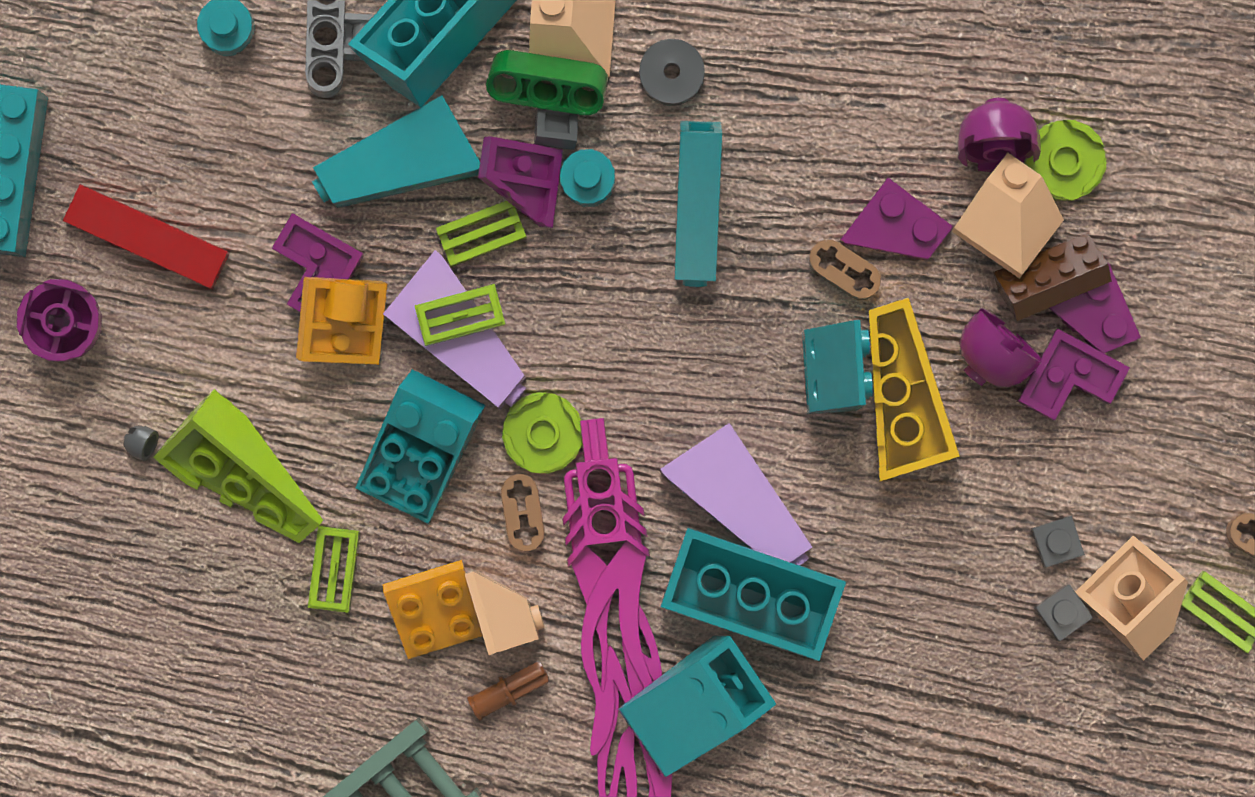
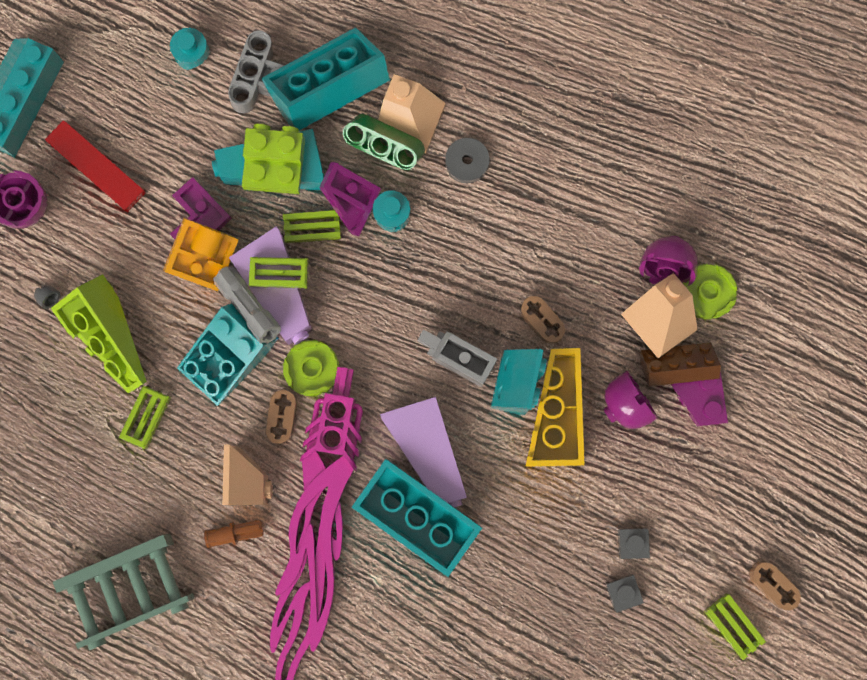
camera: 10 degrees right, 5 degrees down
(402, 158) = (273, 159): none -> lime plate
(432, 609) = (197, 462): light orange plate -> none
(453, 389) = (258, 319): none -> light grey axle
(555, 129) = (380, 173): dark grey plate -> none
(697, 704) = (356, 582): teal slope -> none
(698, 202) = (458, 247): teal slope -> none
(744, 356) = (458, 356): none -> light grey hinge
(897, 224) = (586, 300): magenta wing -> none
(1068, 364) = (674, 426): magenta plate -> none
(1136, 597) = (677, 598): light nougat slope -> none

